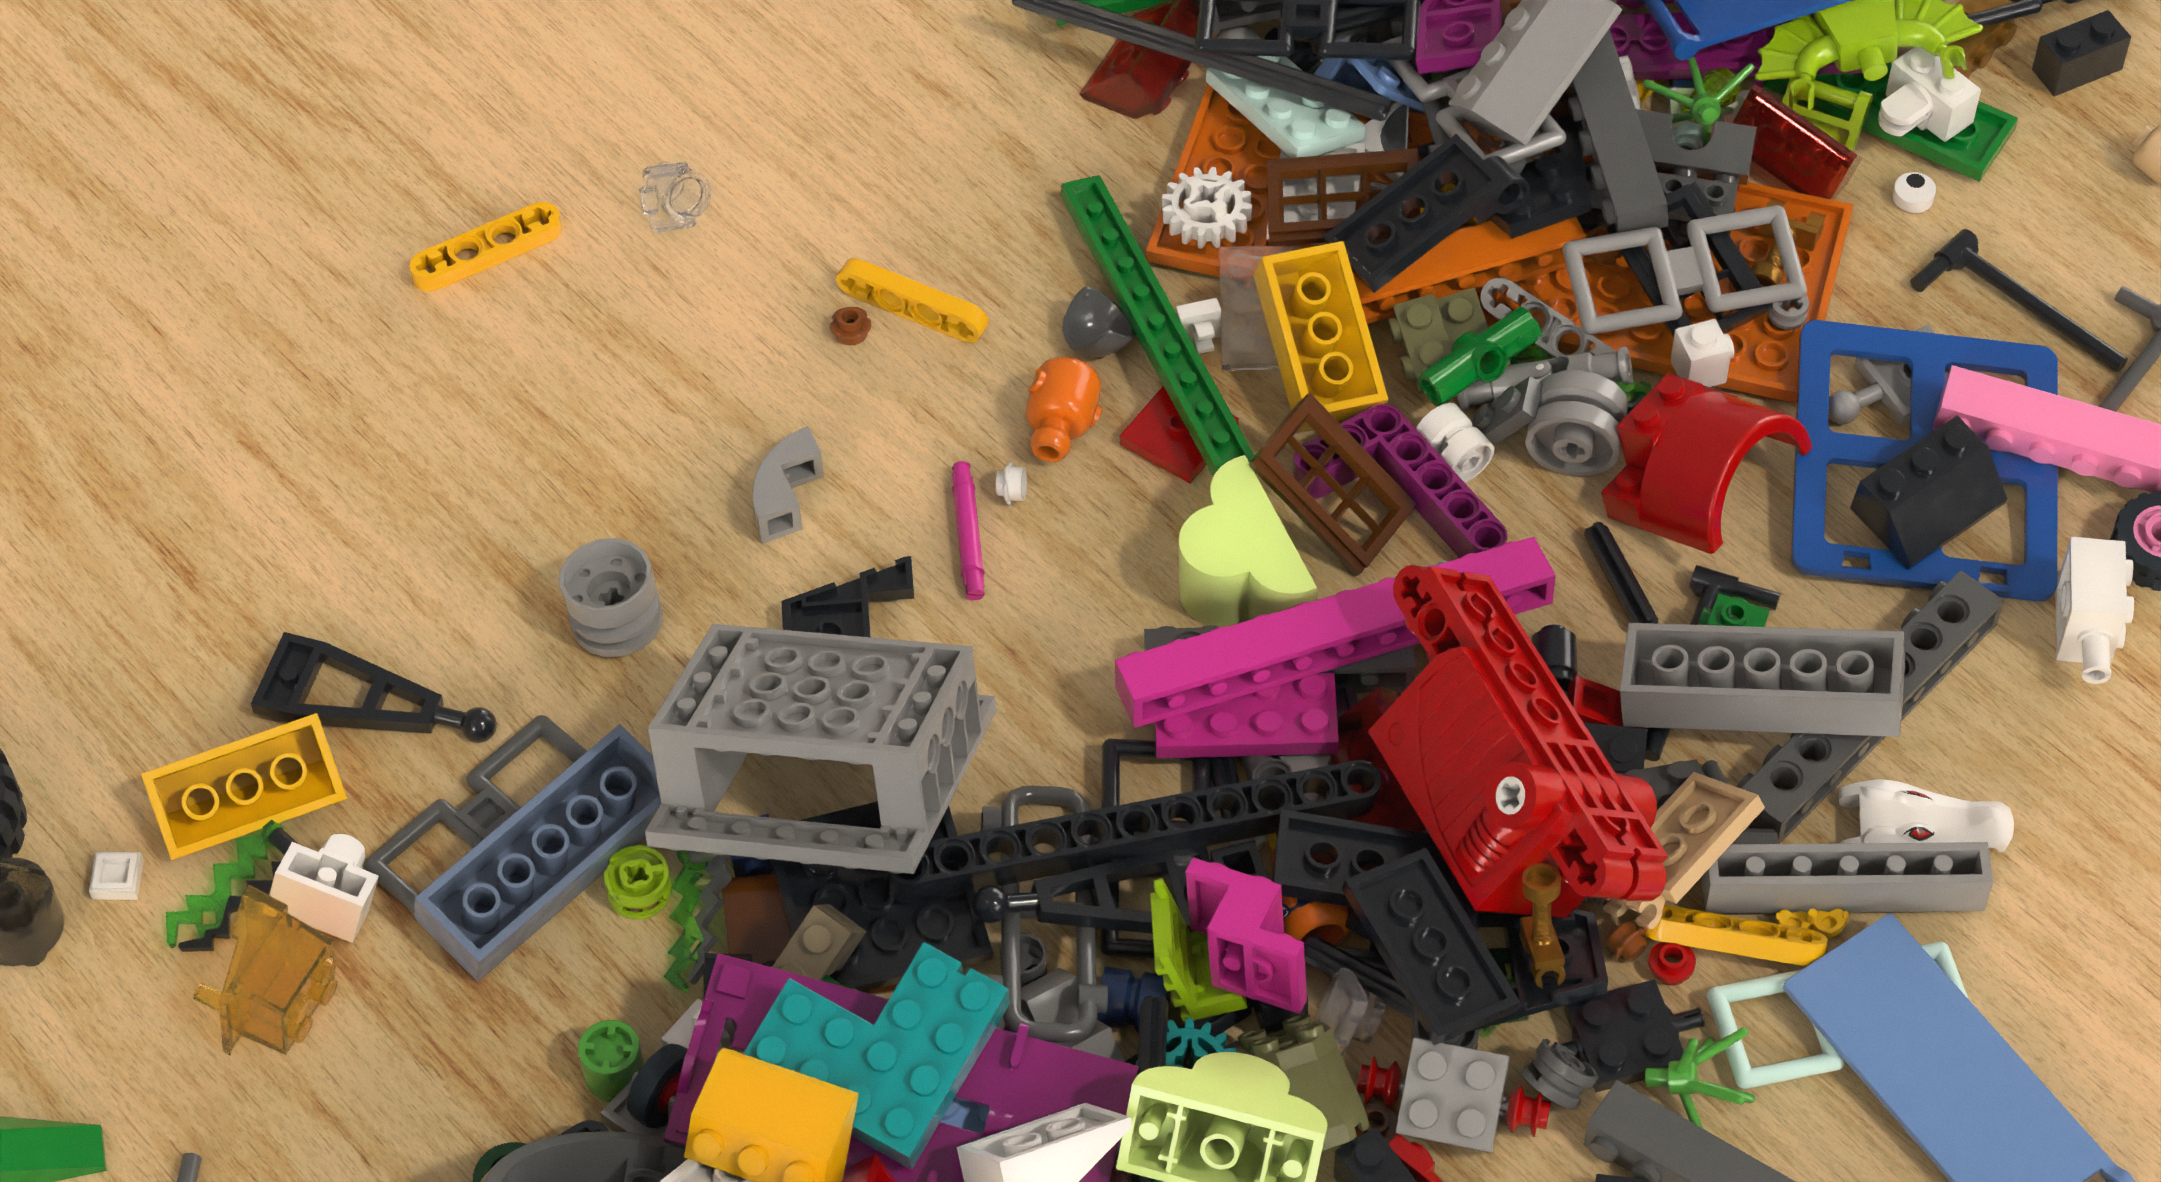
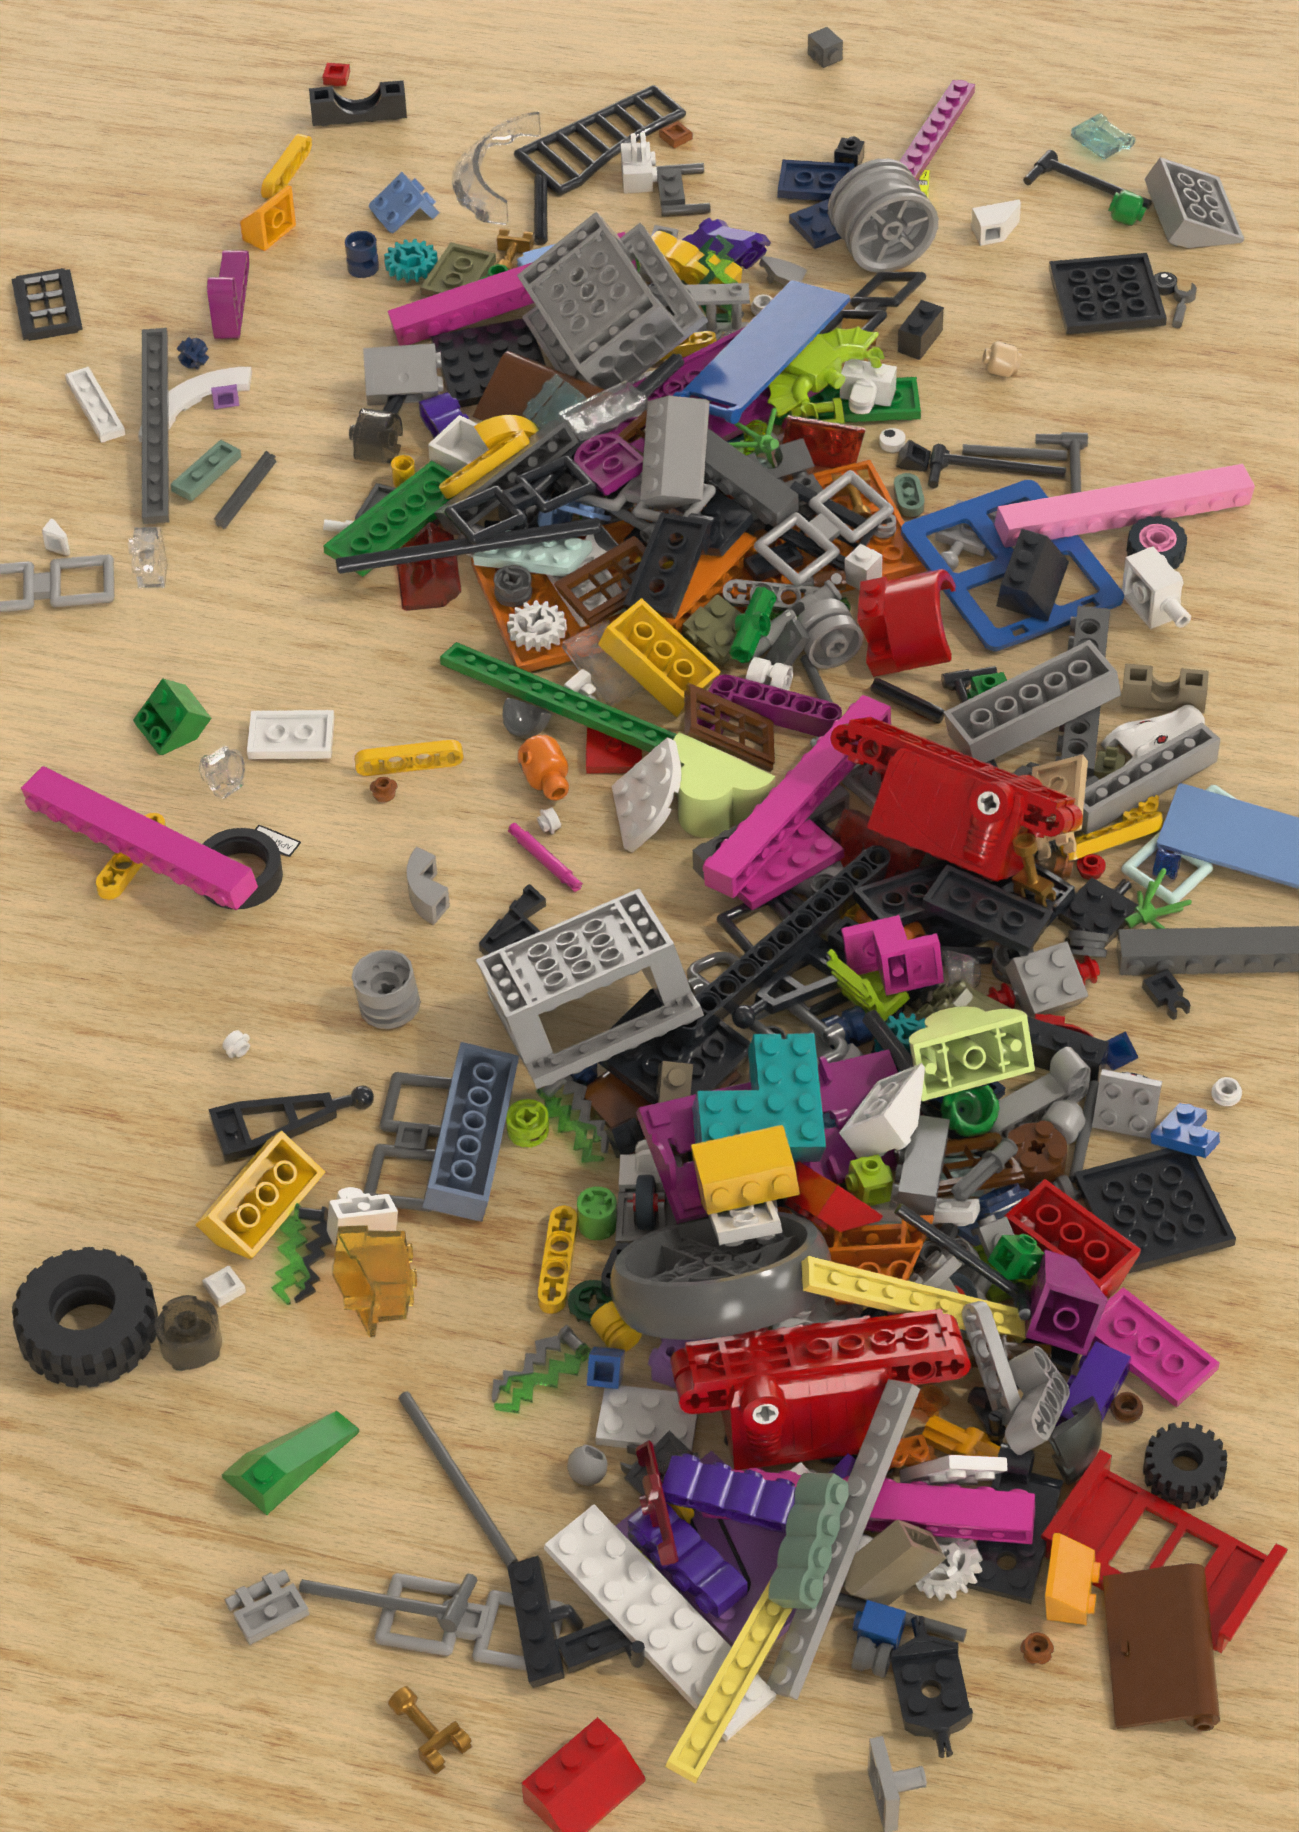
camera: 35 degrees left, 5 degrees down
(393, 565) = (236, 1044): none -> white plate
(496, 232) = (139, 838): none -> dark pink brick
(515, 1087) = (557, 1259): none -> yellow beam
(583, 293) = (252, 842): none -> black tyre
(669, 320) = (285, 843): none -> white sticker
(678, 89) = (171, 717): none -> green slope
(799, 190) = (291, 734): none -> white plate
(1147, 516) = (646, 794): none -> white plate
(1224, 136) = (512, 586): none -> dark grey wheel
(1518, 494) = (815, 679): none -> dark grey bar
(1608, 281) = (761, 569): none -> black plate
(1642, 347) = (837, 577): none -> reddish brown piece
(1778, 1022) = (1169, 861): none -> clear blue wheel
(1823, 825) = (1108, 762): none -> olive tile
(1865, 290) = (909, 495): none -> sand green plate
(1924, 232) = (913, 457): none -> black slope
(1957, 744) = (1145, 691): none -> dark tan arch
(2074, 298) = (1014, 452): none -> dark grey piece

